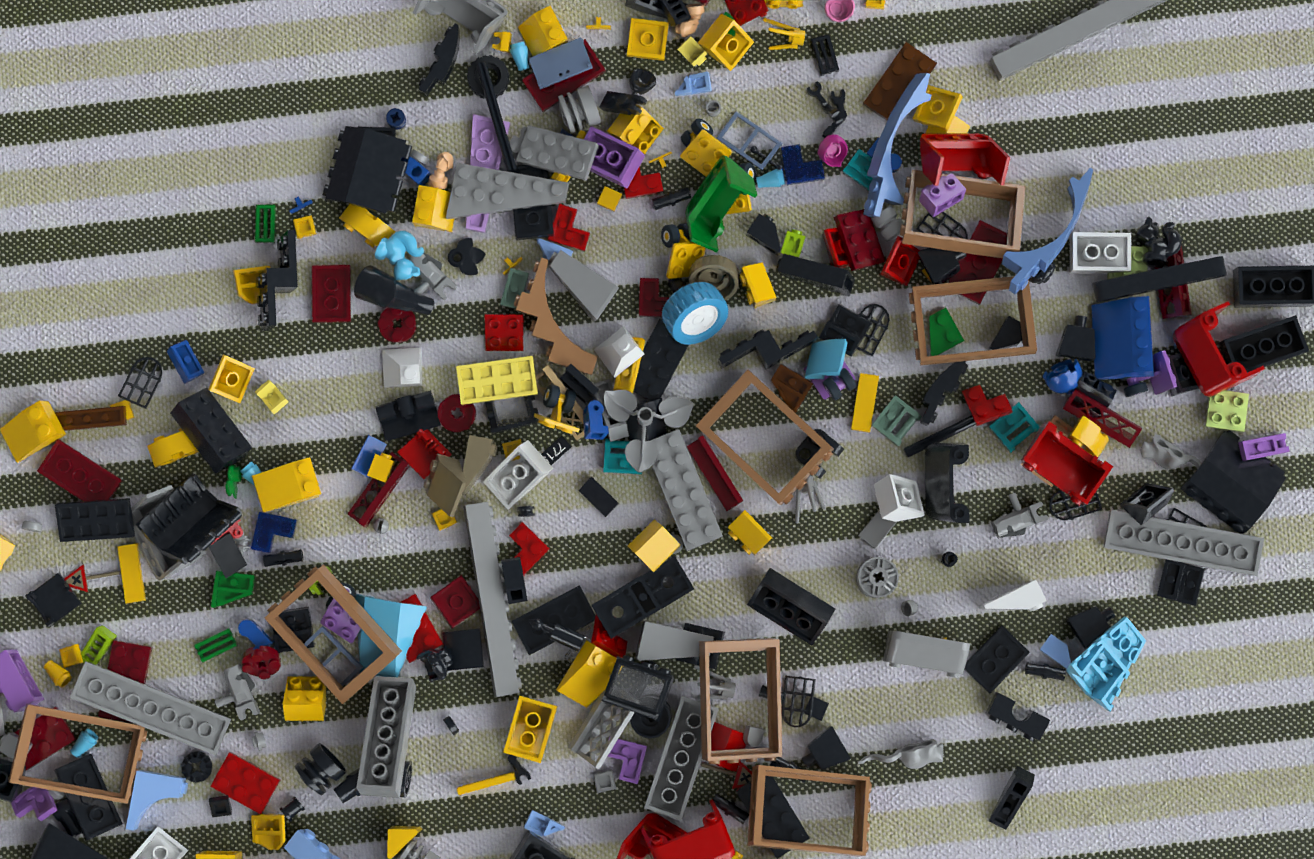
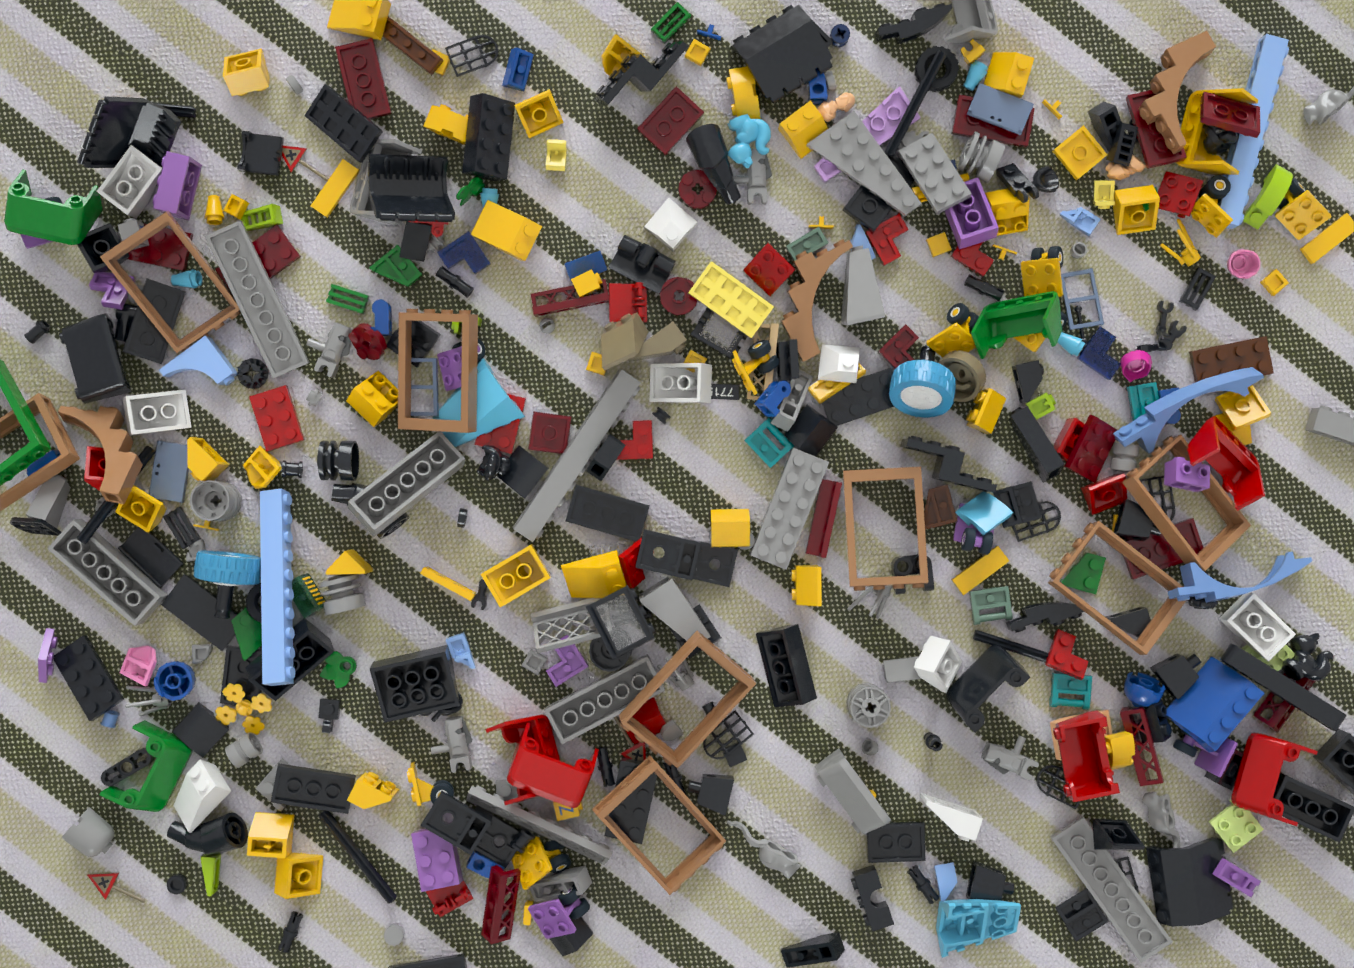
camera: 40 degrees right, 5 degrees up
(220, 806) = (243, 418): black tile -> none
(469, 257) = (796, 190): black plate -> none
(559, 634) = (601, 527): black wheel -> none
(598, 497) = (723, 454): black slope -> none
(621, 405) = (805, 404): light grey plant -> none

